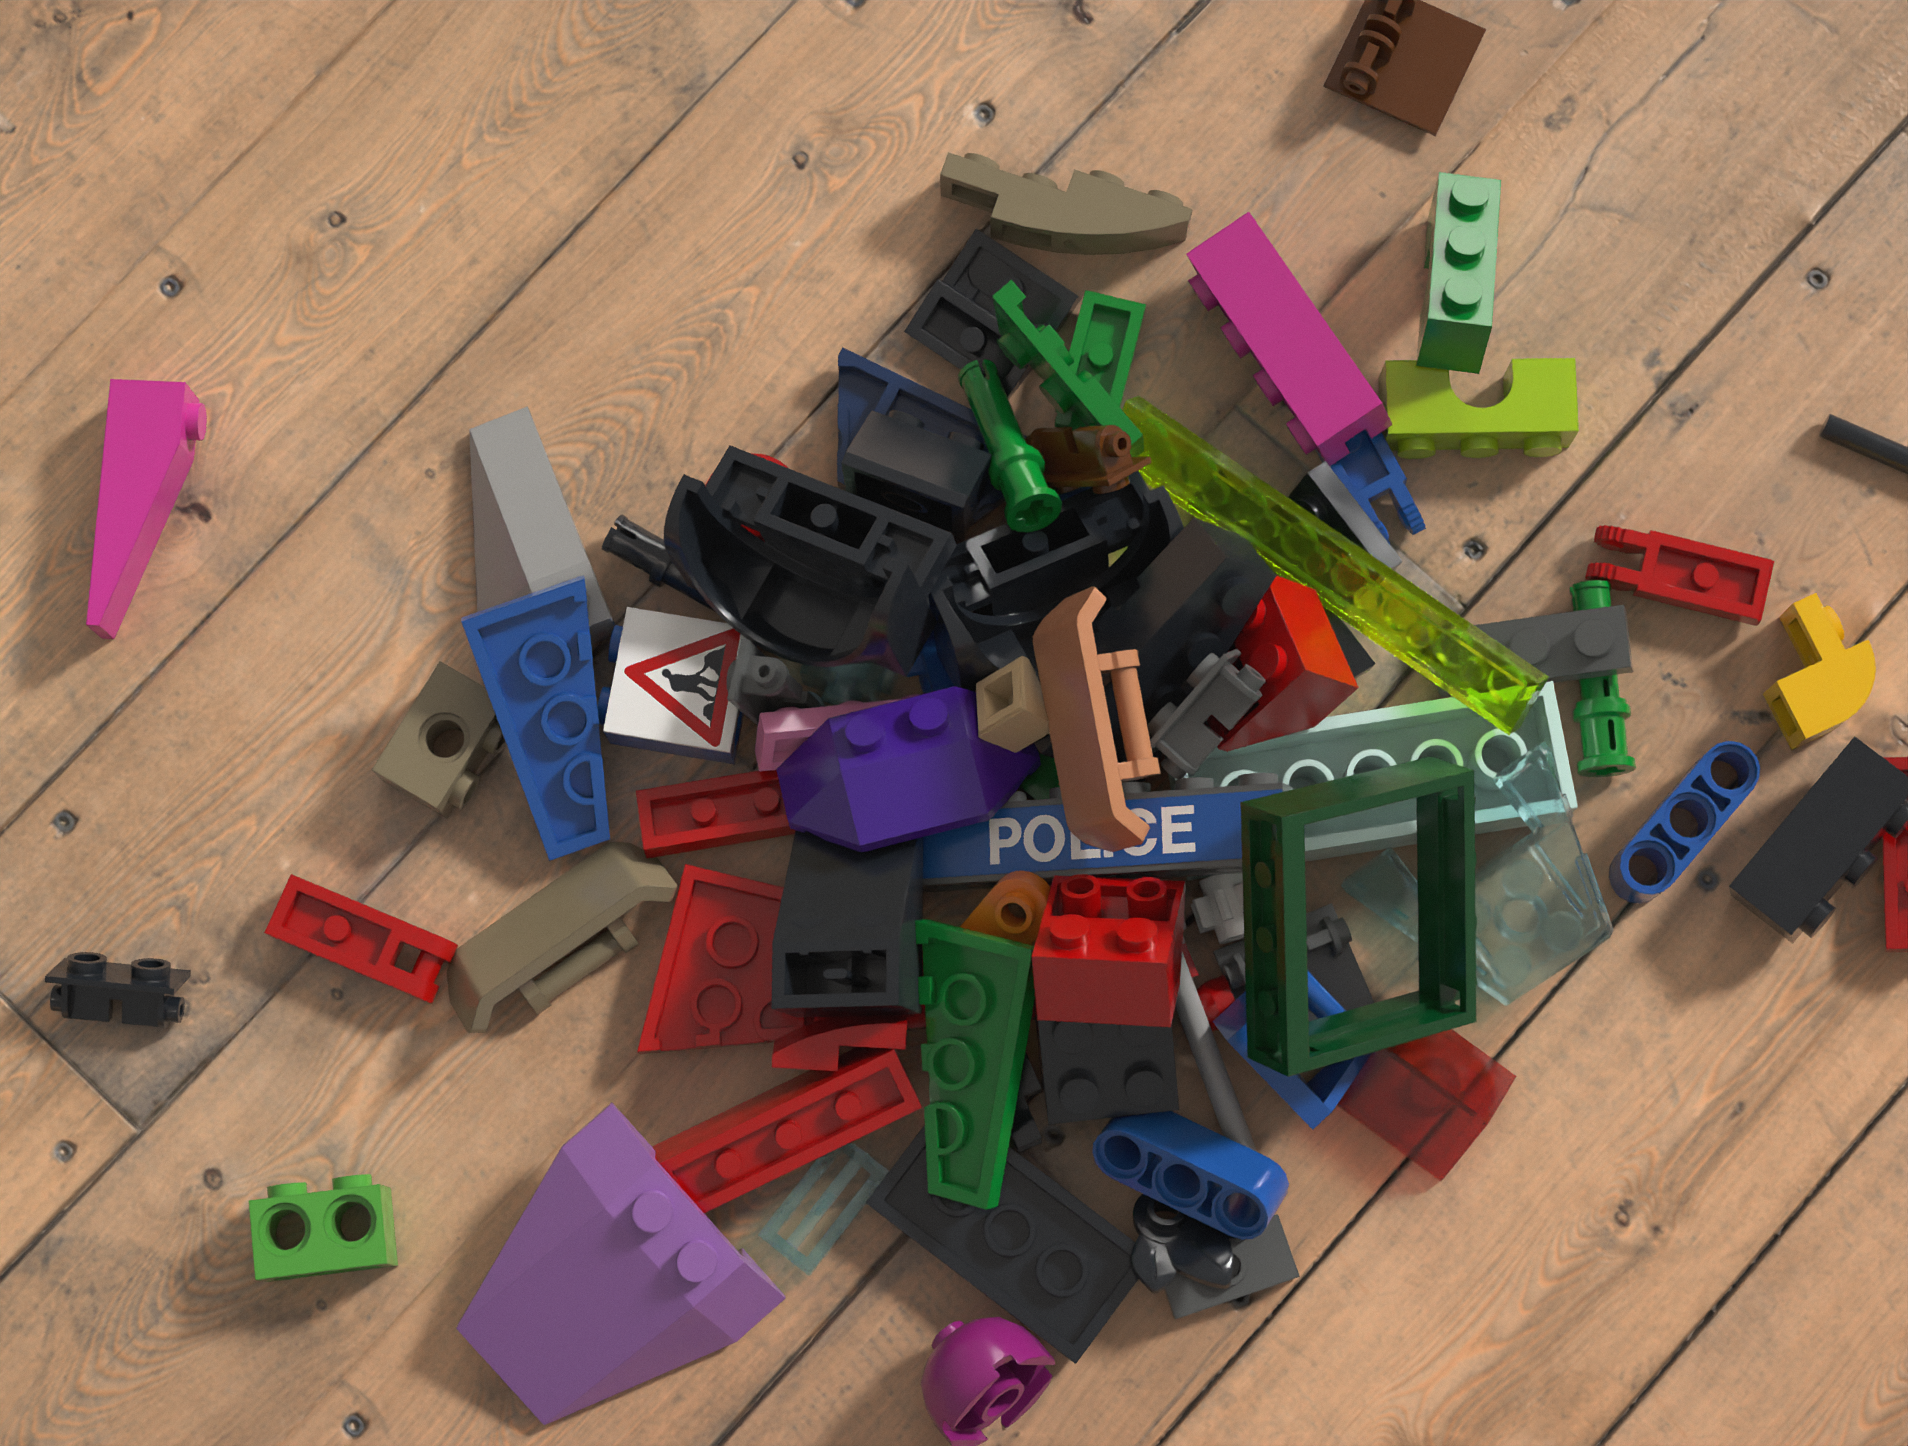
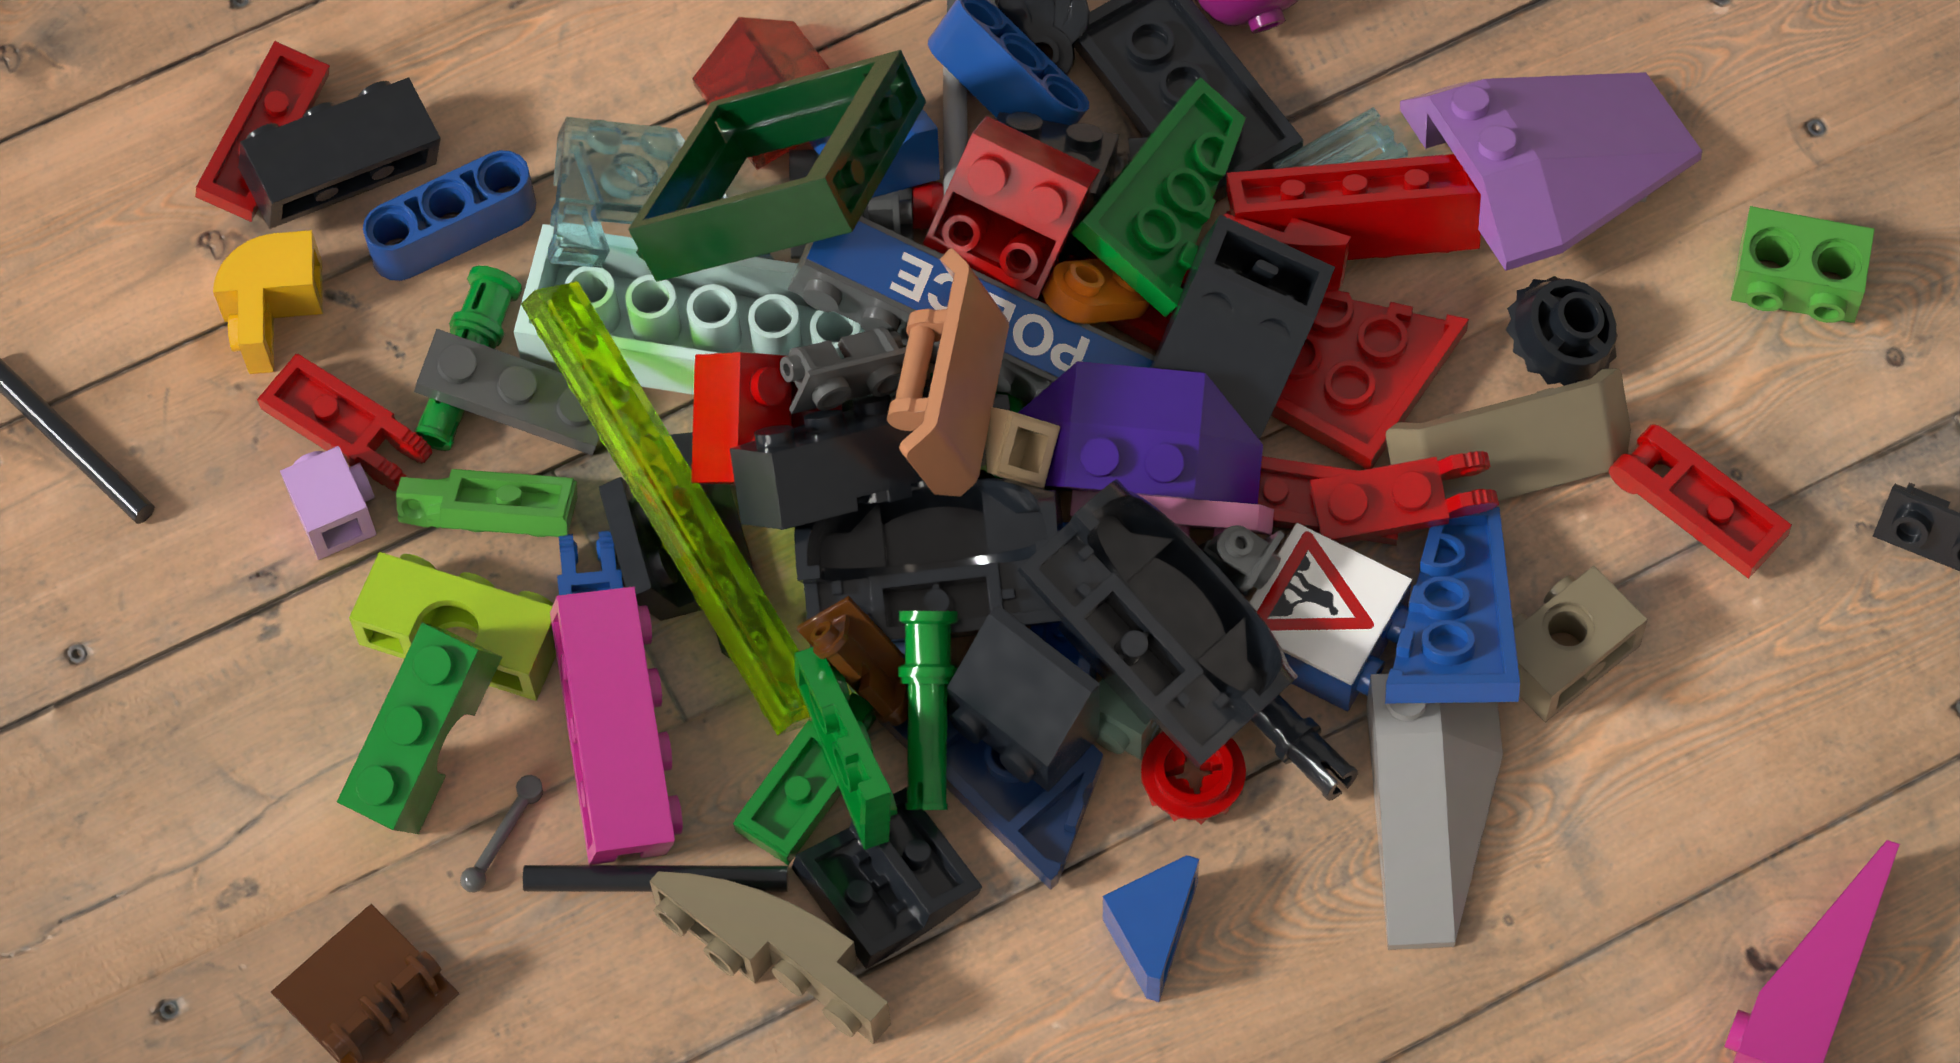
camera: 160 degrees left, 15 degrees down
(542, 1076) = (1562, 330): none -> black piece
(643, 820) = (1398, 497): none -> red hinge
(743, 344) = (1149, 920): none -> blue slope
(1174, 252) = (637, 877): none -> black bar
(1346, 288) = (529, 792): none -> dark grey hinge
(1500, 537) = (489, 502): none -> bright green hinge
(1656, 485) = (330, 500): none -> lavender brick

